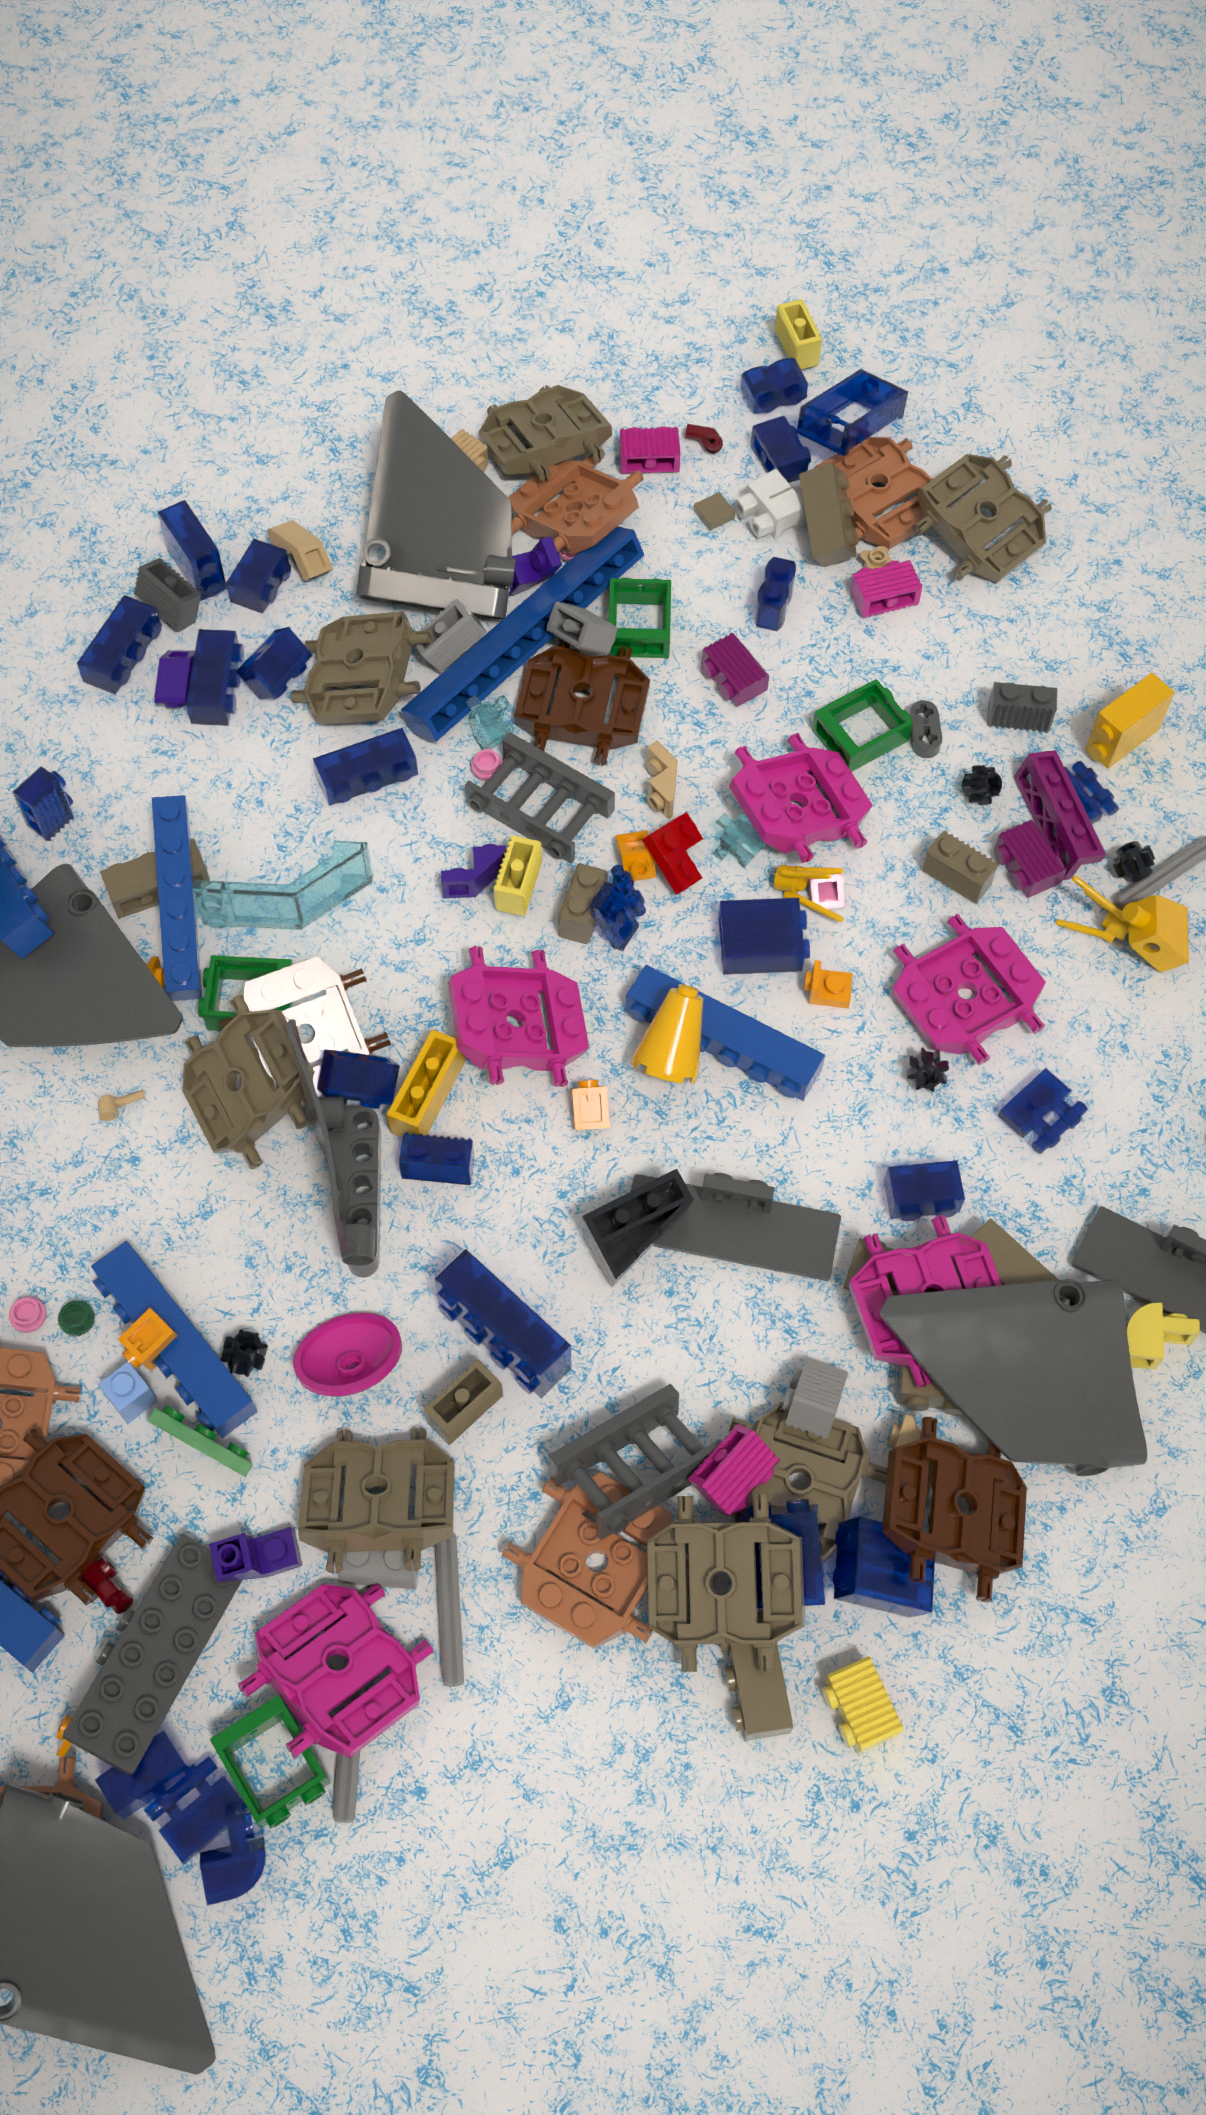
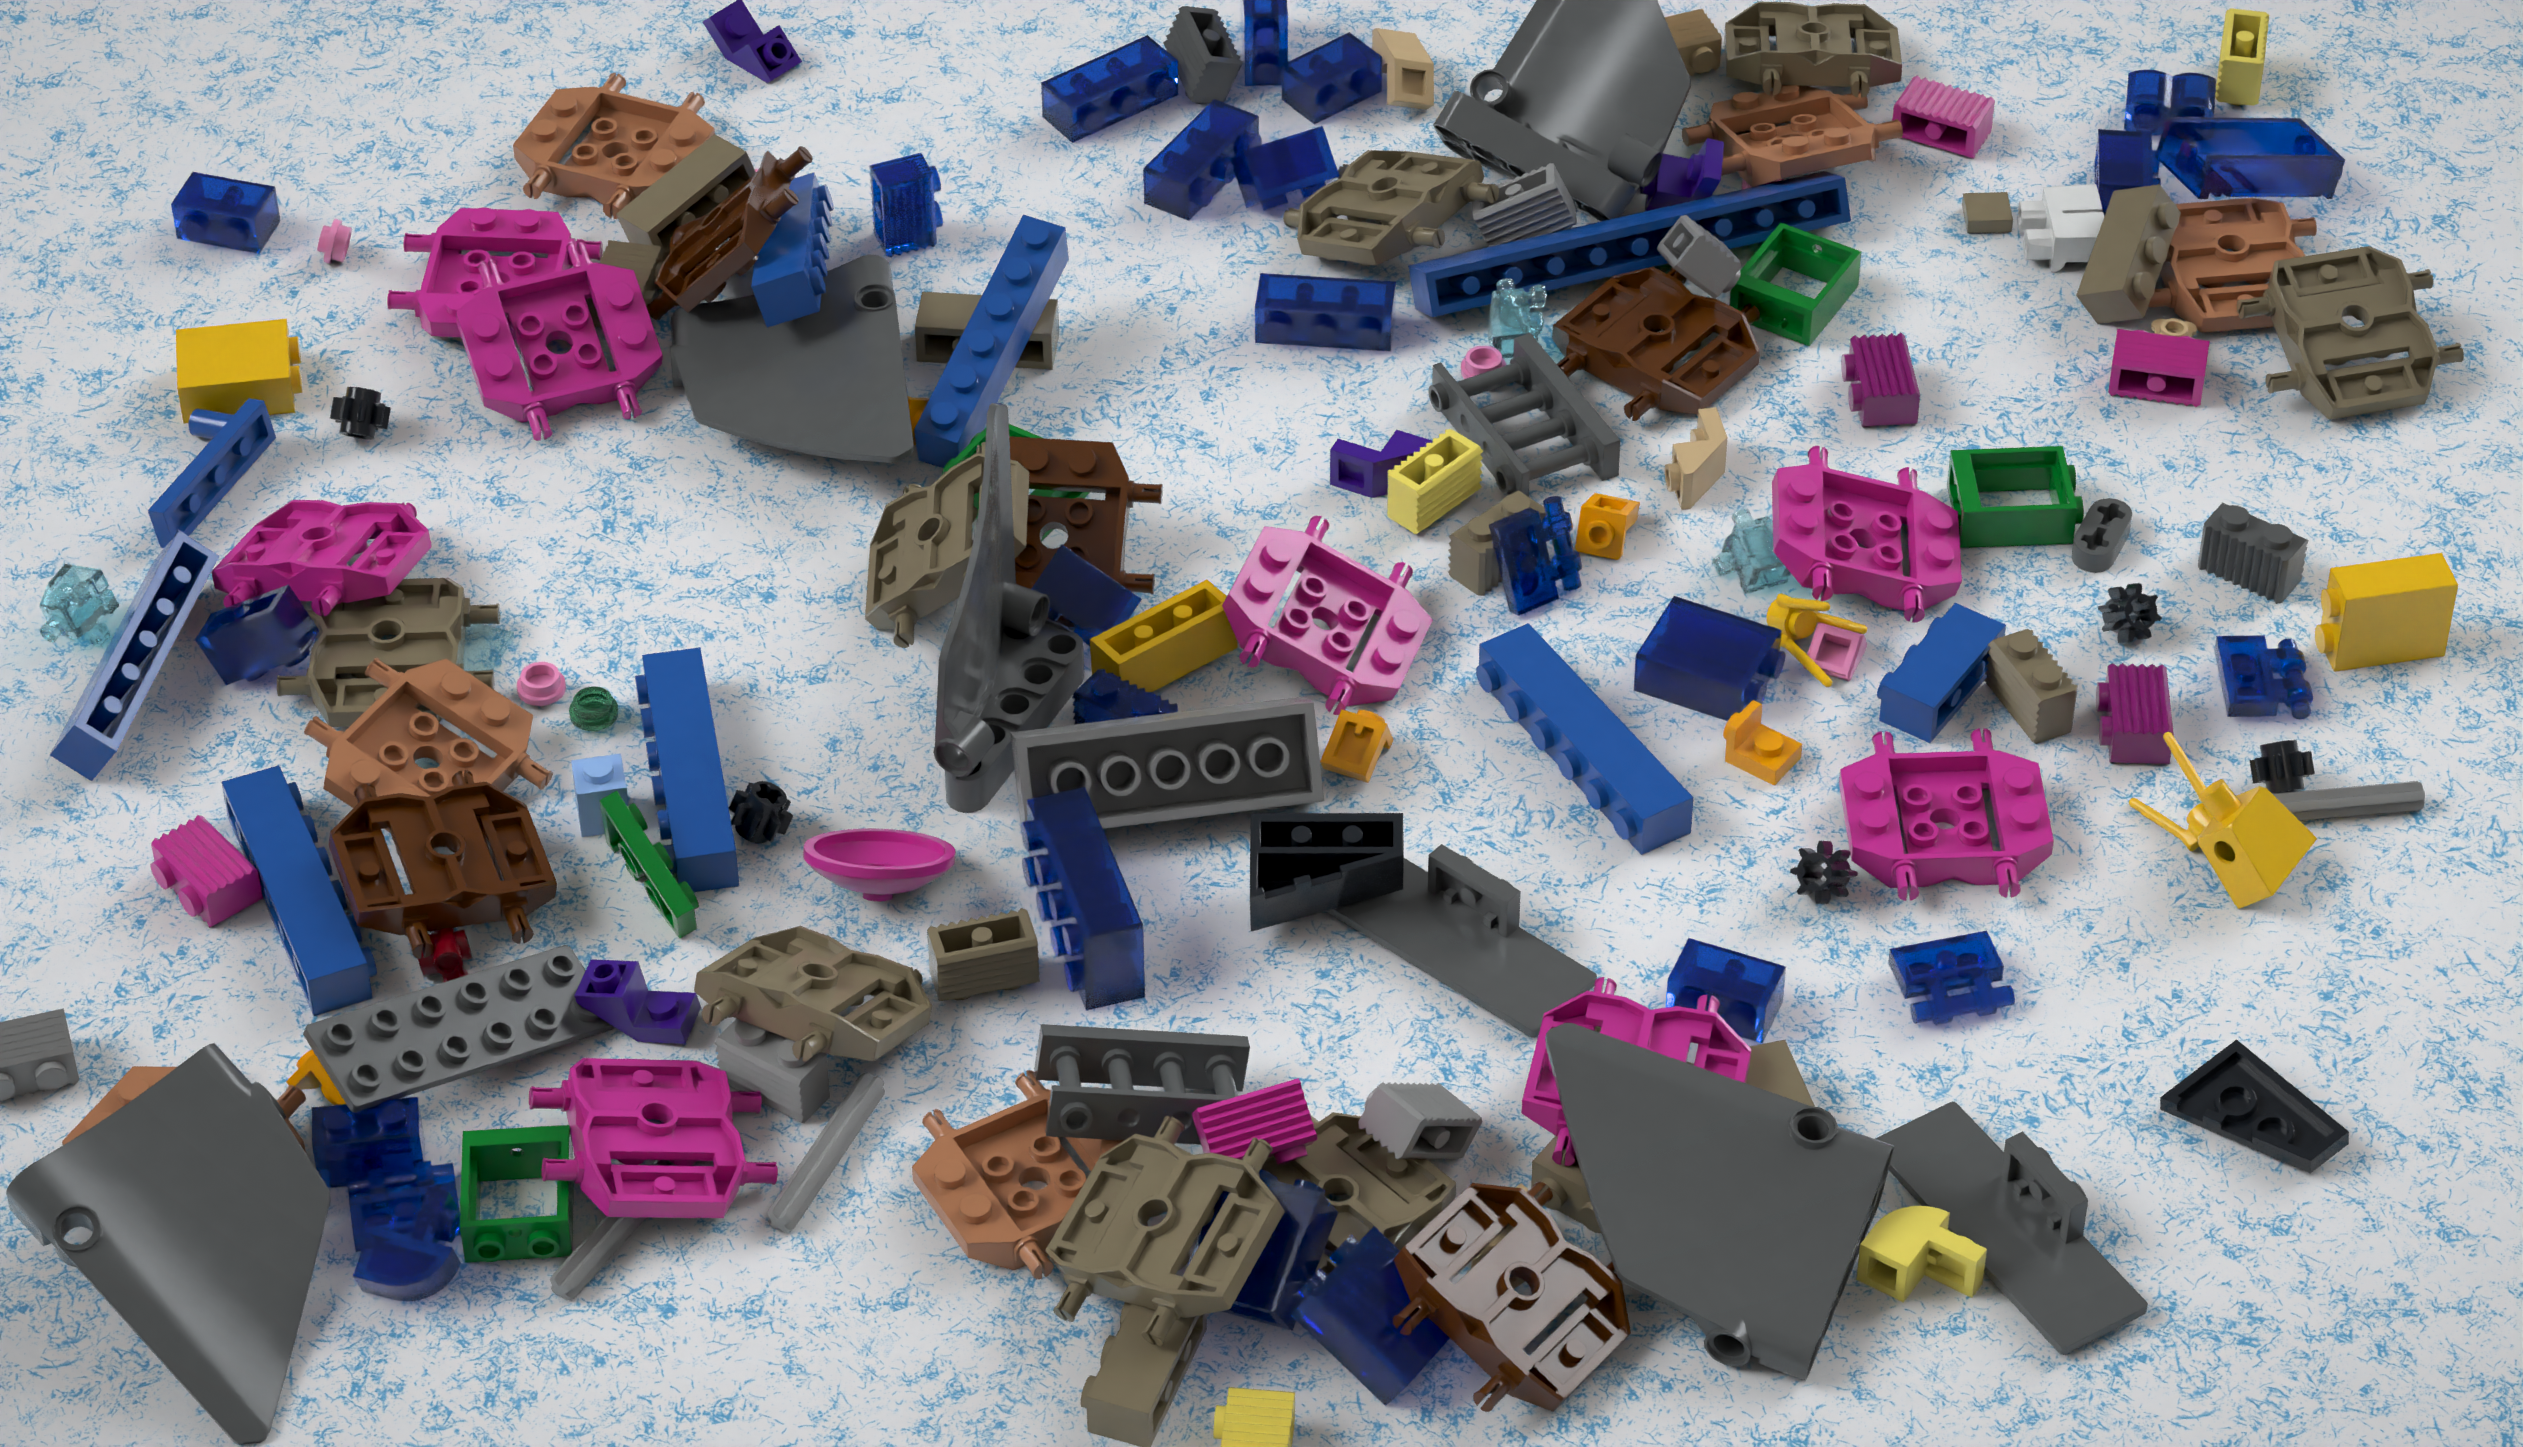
camera: 30 degrees right, 20 degrees down
(108, 1104) = (775, 526): tan hand -> none
(146, 1339) = (653, 739): light orange bracket -> none
(174, 678) = (1145, 141): dark purple slope -> none
(282, 904) = (1137, 404): clear light blue windscreen -> none
(494, 1191) = (1177, 762): none -> light grey brick
(669, 849) = (1650, 527): red plate -> none
(673, 1037) = (1504, 696): yellow cone -> none
(706, 435) = (2037, 130): dark red arm -> none
(775, 593) = (1998, 319): clear blue brick -> none
(900, 880) = (1938, 673): none -> blue brick
(1060, 808) = (2216, 674): magenta fence -> none

